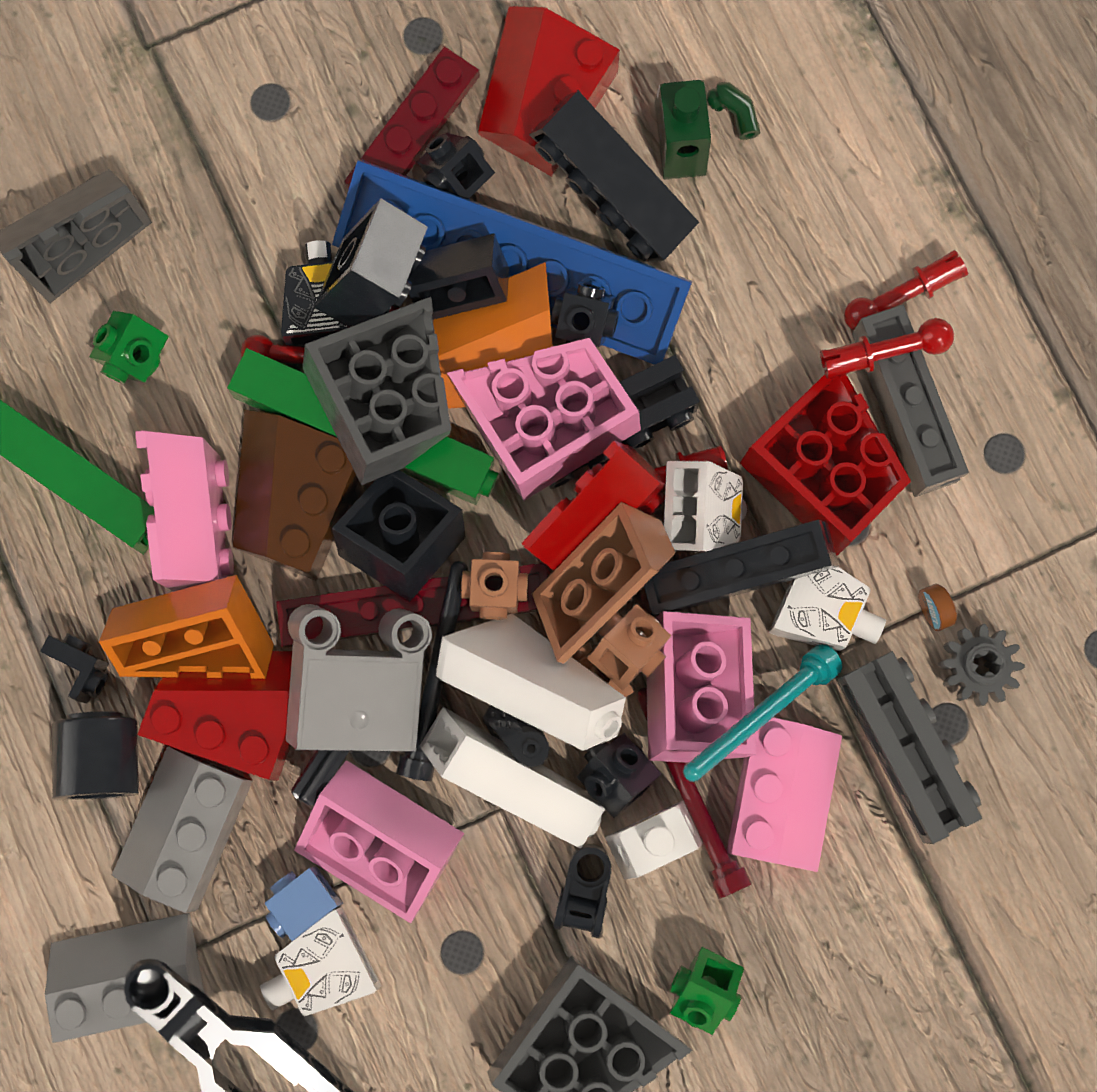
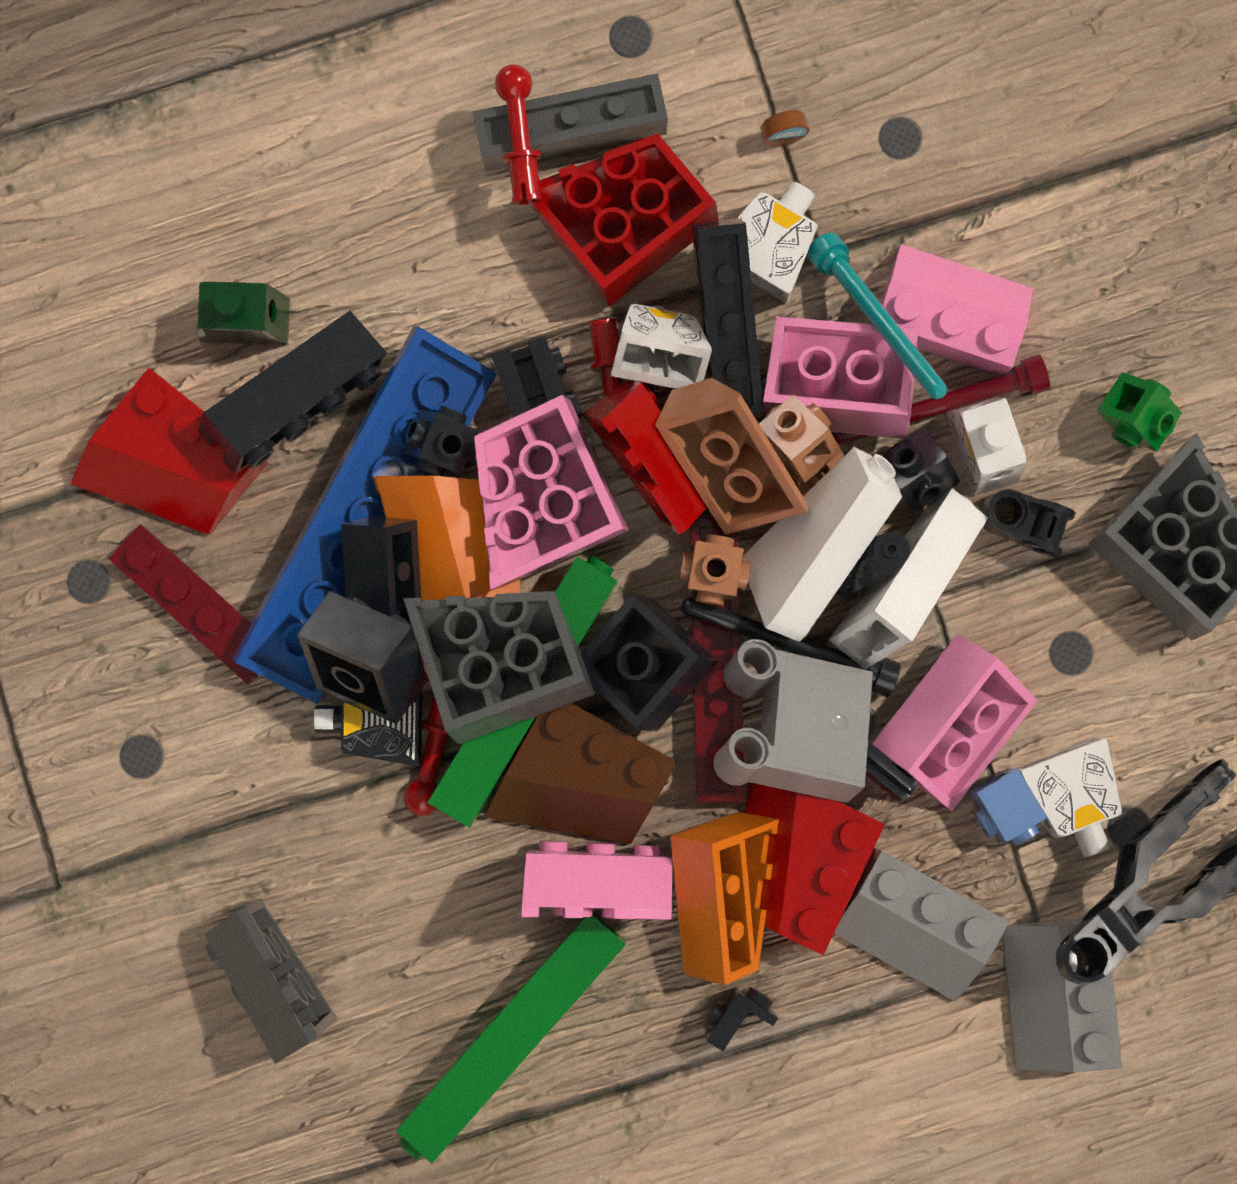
camera: 85 degrees left, 5 degrees up
(95, 756) = (838, 1003): black piece -> none
(128, 348) = (405, 932): green brick -> none
(455, 164) = (250, 560): black brick -> none
(738, 103) = (218, 251): dark green arm -> none
(910, 748) = (921, 178): dark grey brick -> none
(926, 281) = (464, 155): red pin -> none
(998, 662) = (842, 78): dark grey gear -> none

